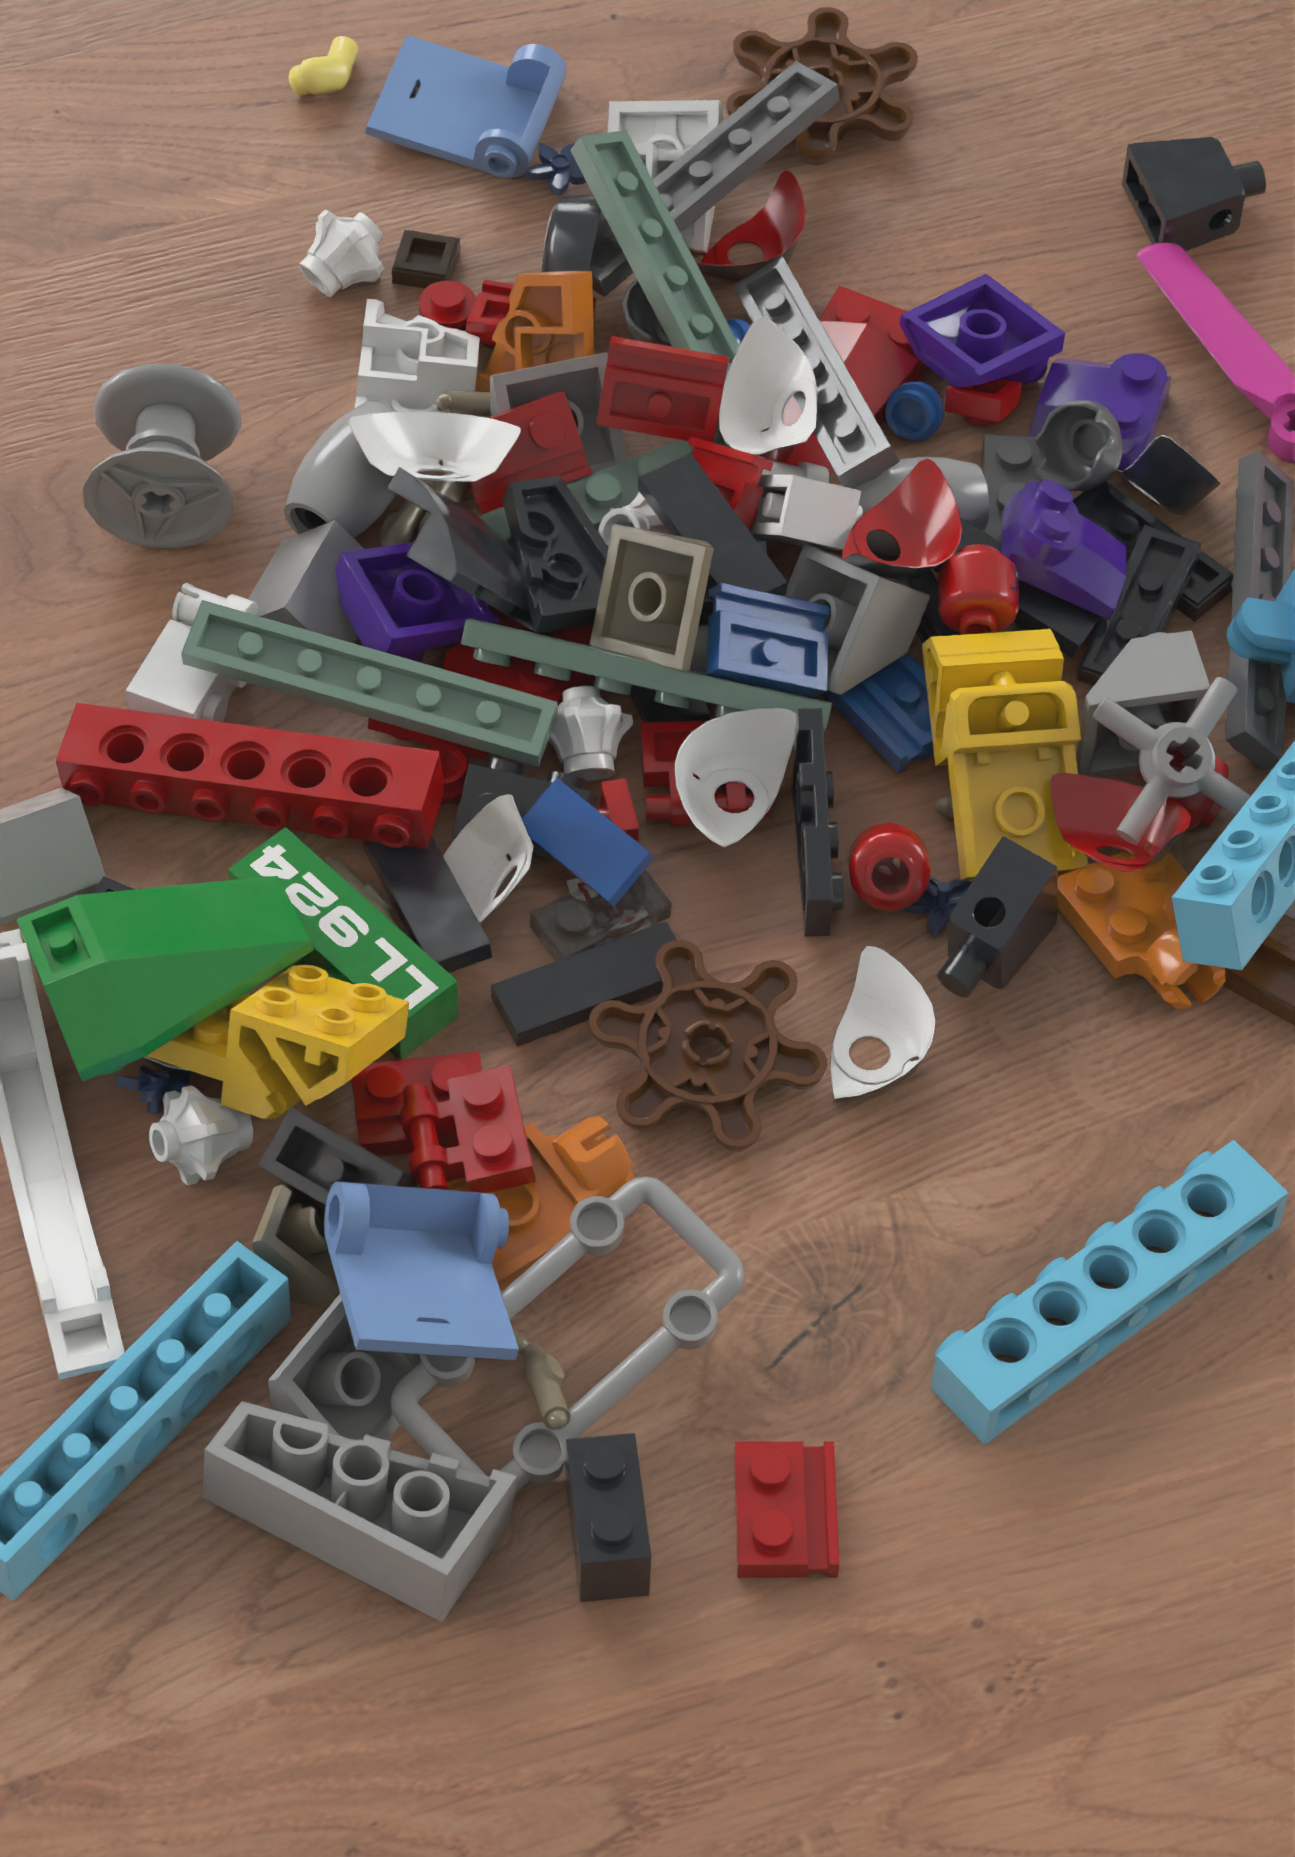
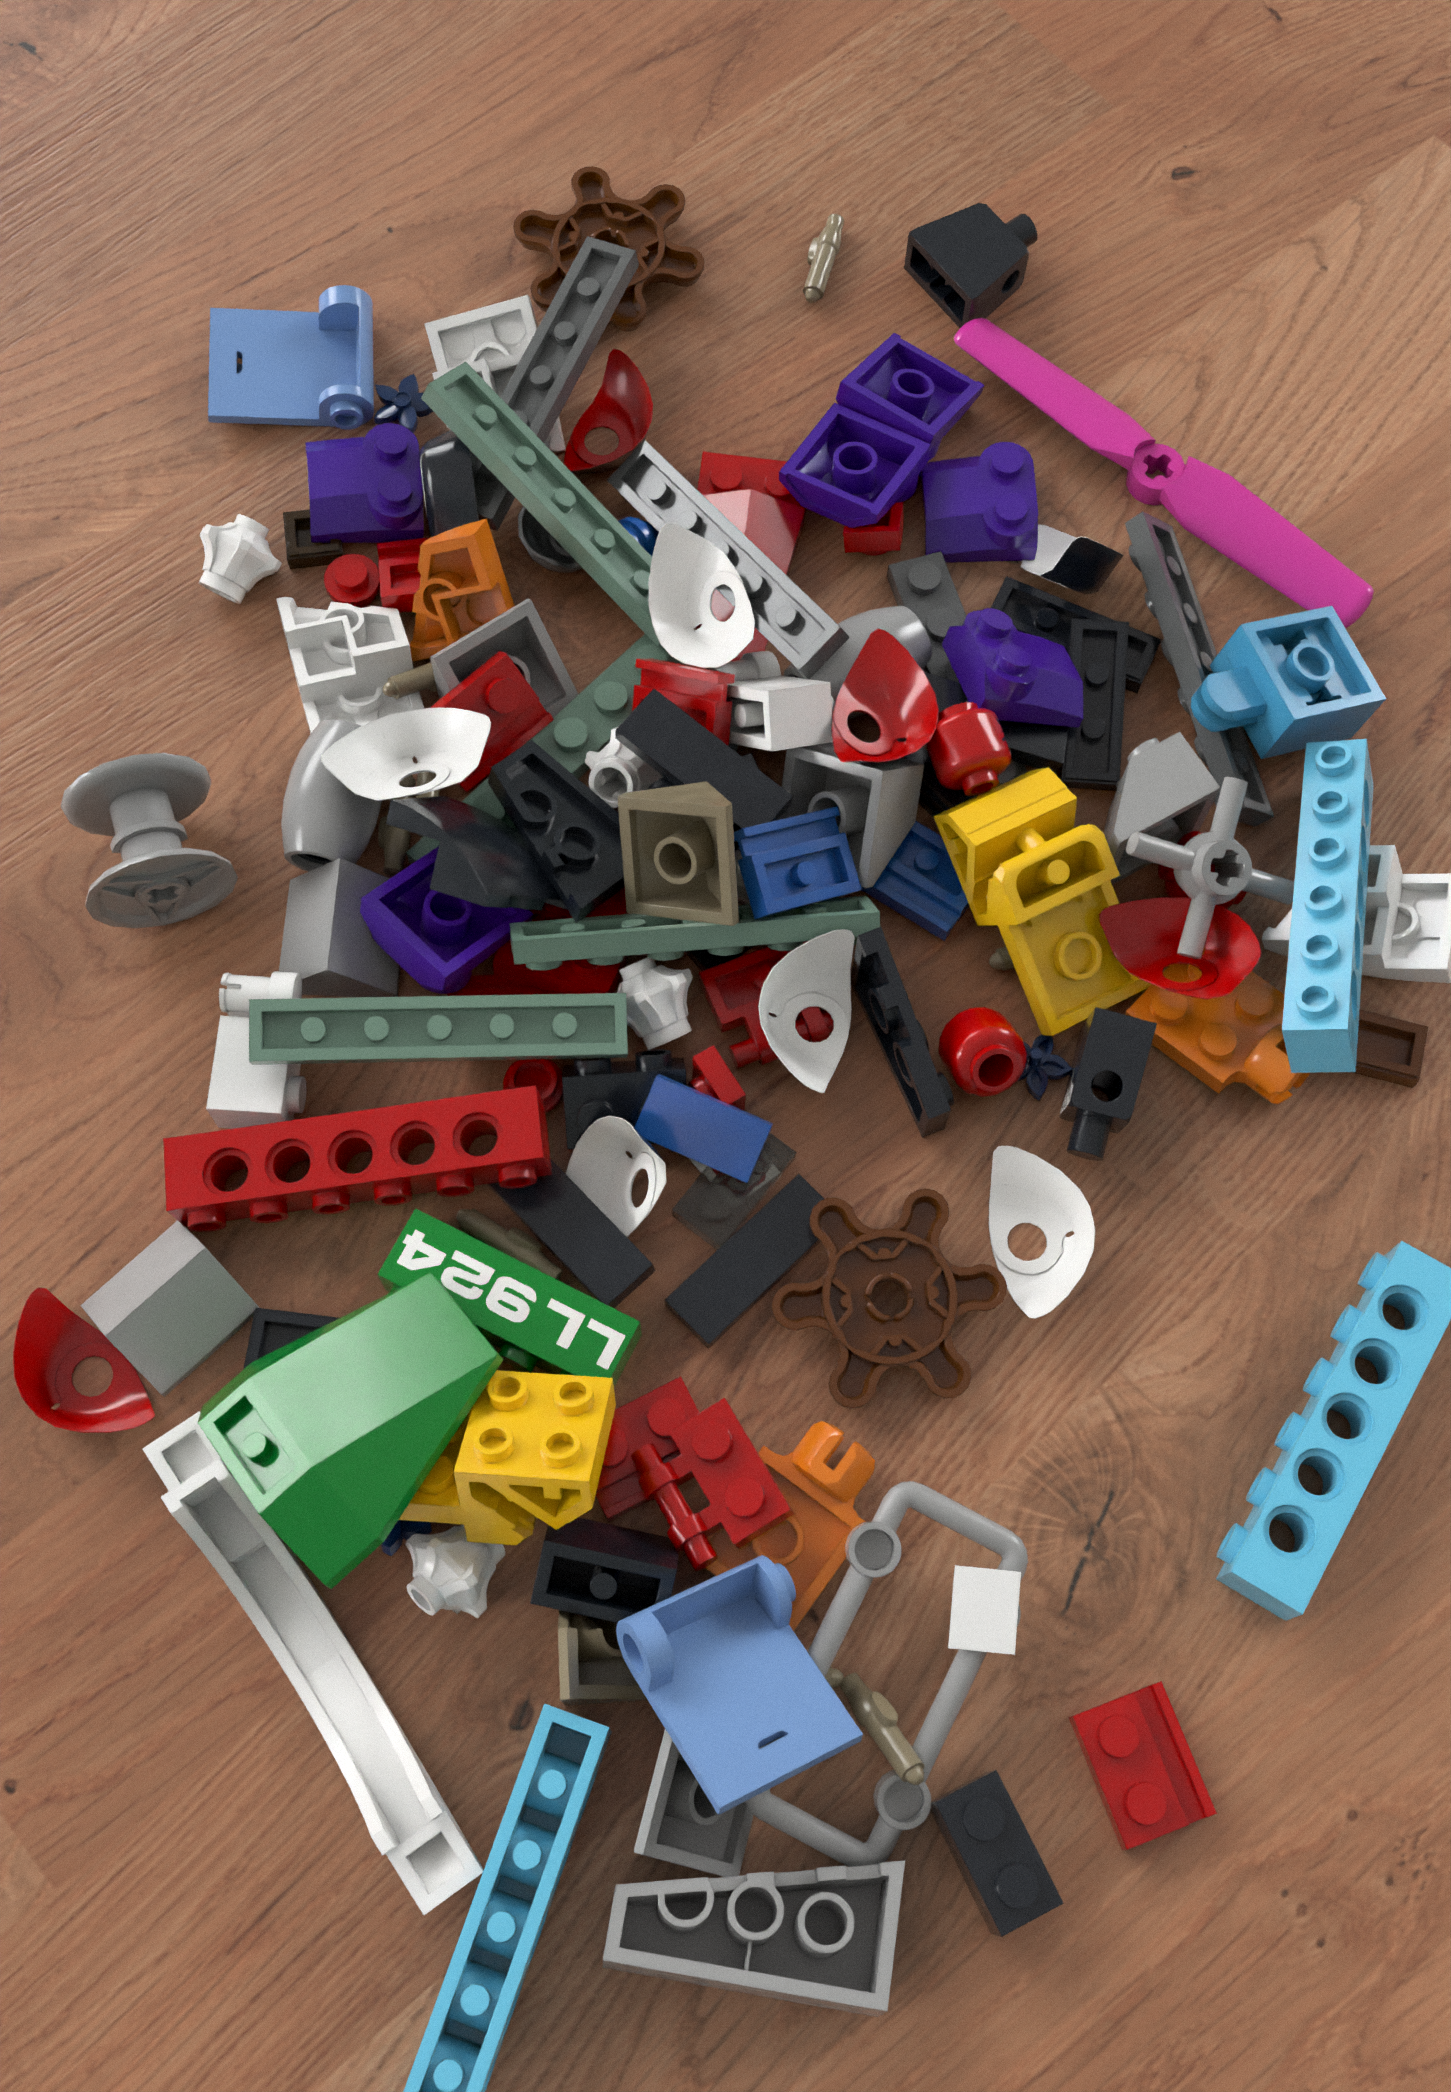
camera: 20 degrees left, 15 degrees up
(325, 73) = (148, 368): light yellow arm -> none
(491, 226) = (366, 487): none -> dark purple slope
(661, 390) = (595, 622): red plate -> none
(681, 1308) = (984, 1610): none -> white sticker
(914, 411) = (818, 560): blue plate -> none
(1038, 151) = (822, 257): none -> dark tan piece
(1069, 288) = (909, 391): none -> dark purple slope
(1079, 445) = (984, 557): dark grey hair -> none

